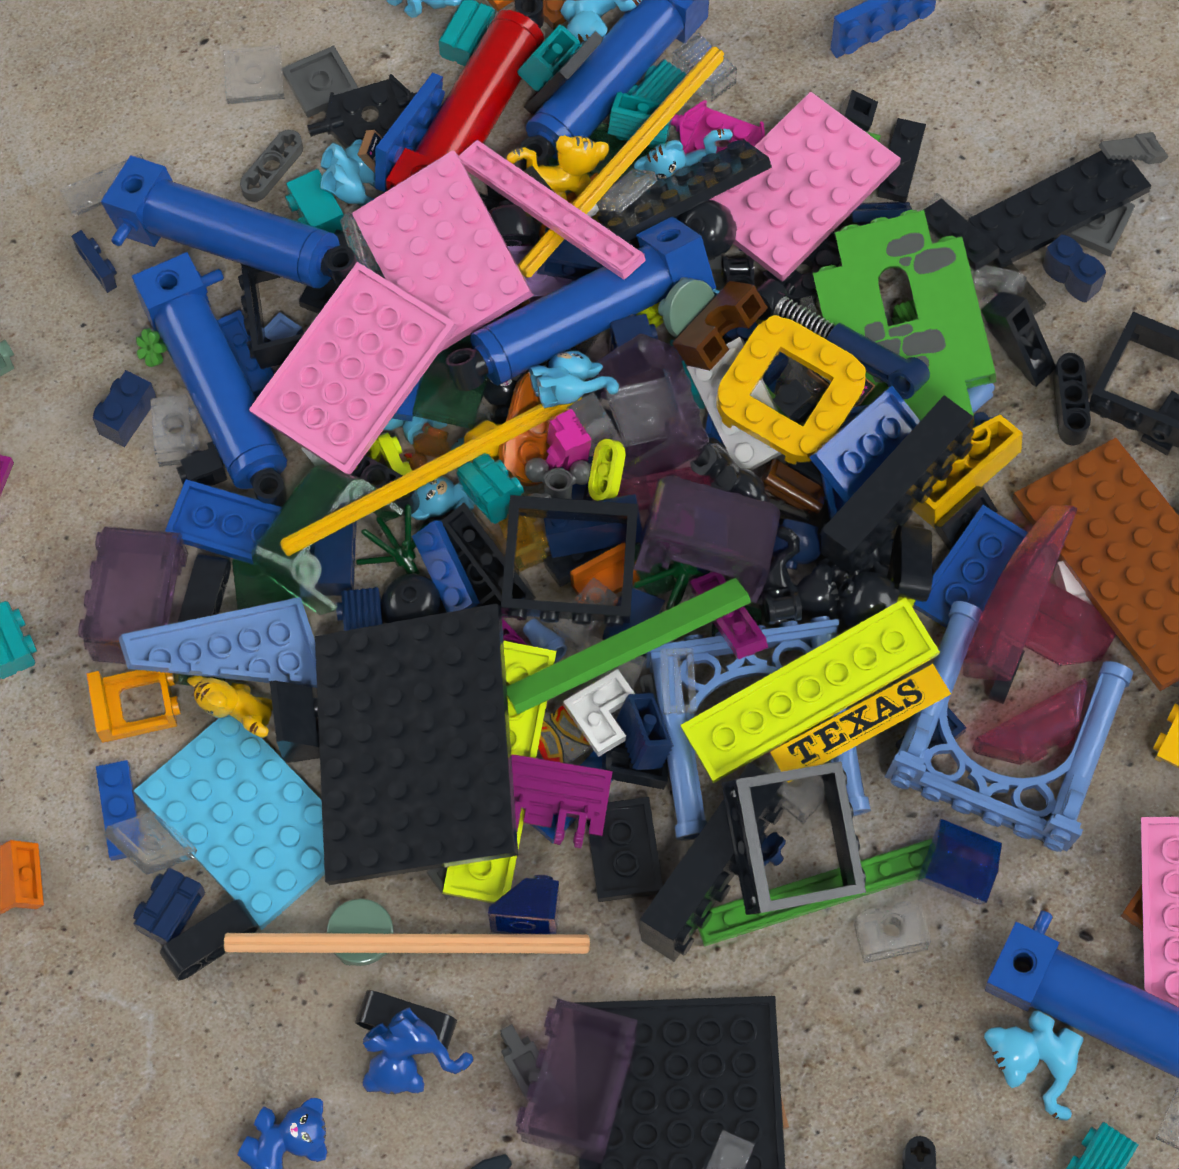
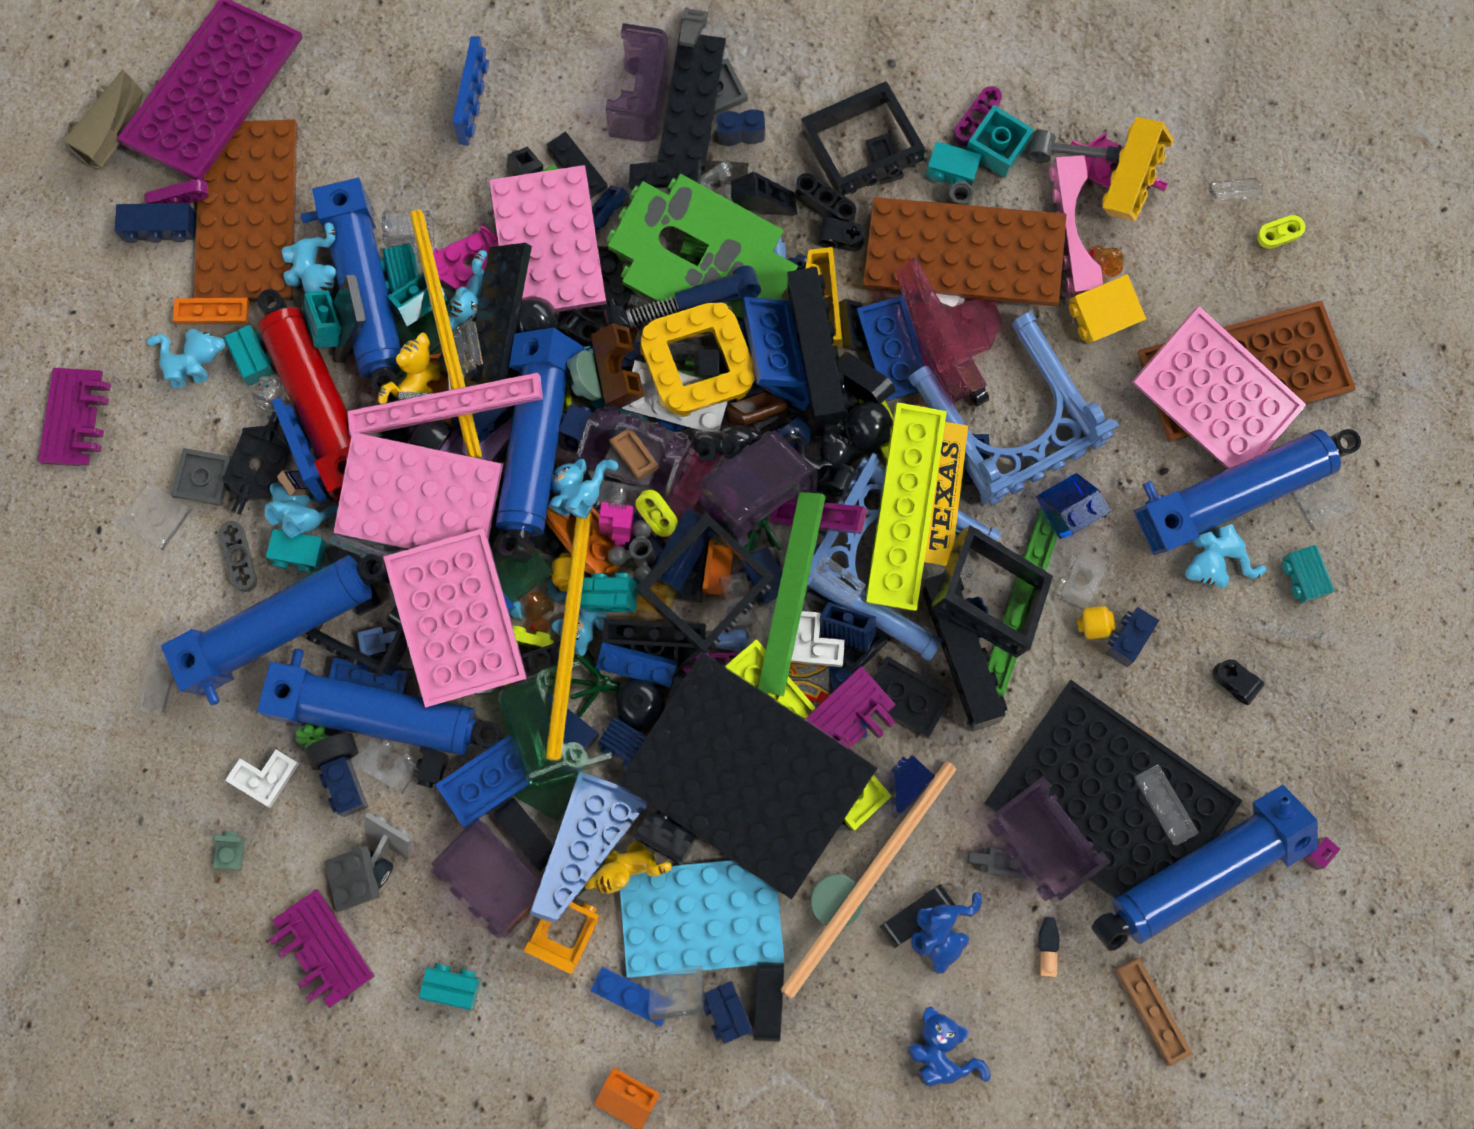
camera: 55 degrees left, 10 degrees up
(42, 478) = (355, 885): none -> dark grey plate
(71, 484) = (388, 838): none -> light grey plate
(77, 344) = (263, 784): none -> white plate
(89, 252) = (201, 725): dark blue plate -> none
(151, 367) = (331, 749): none -> black tyre
(445, 66) = (267, 390): none -> clear head
(647, 407) = (634, 454): none -> medium nougat tile
(858, 979) = (1096, 622): none -> yellow head
(873, 1024) = (1132, 637): none -> dark blue brick
(1007, 165) = (639, 111): none -> clear purple windscreen
(1036, 729) = (1021, 392): clear pink wedge -> none
(1048, 438) = (838, 233): none -> black piece

